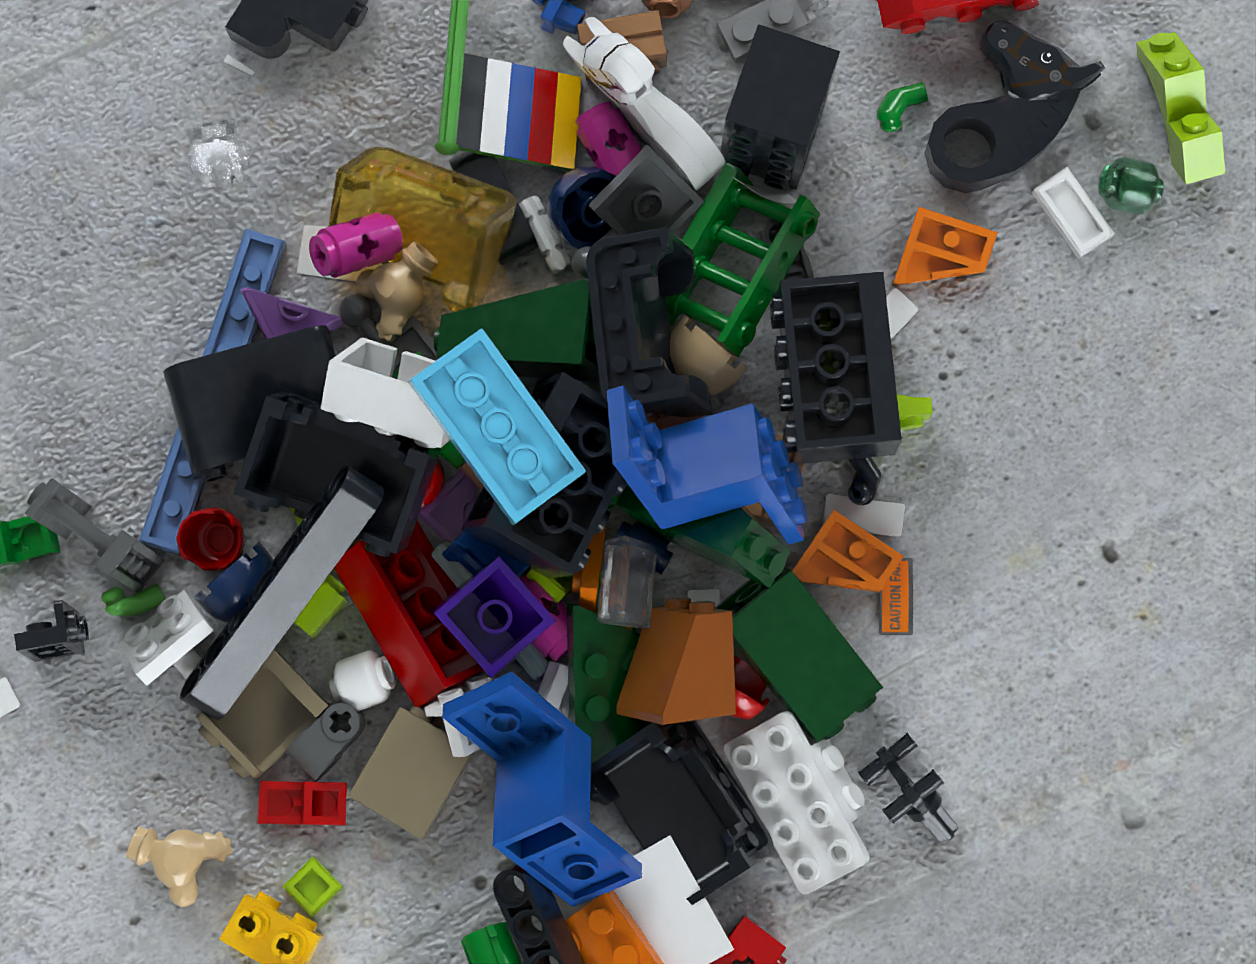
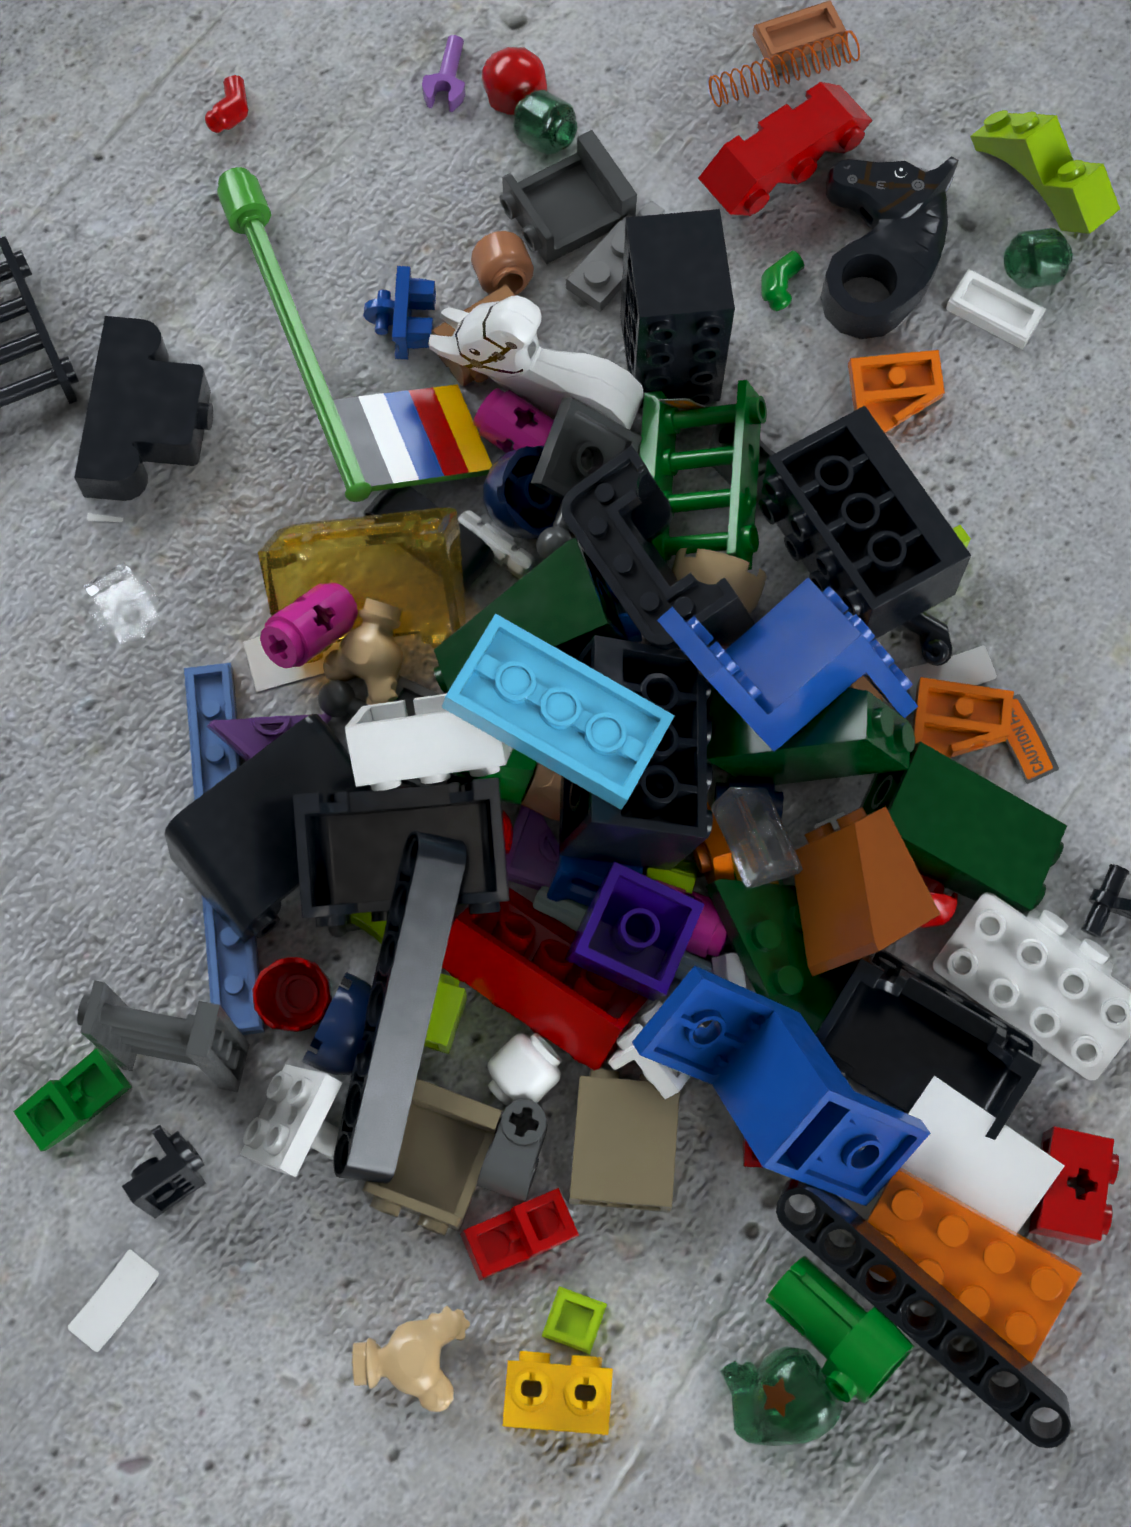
camera: 25 degrees left, 10 degrees down
(133, 605) = (235, 1107): bright green arm -> none

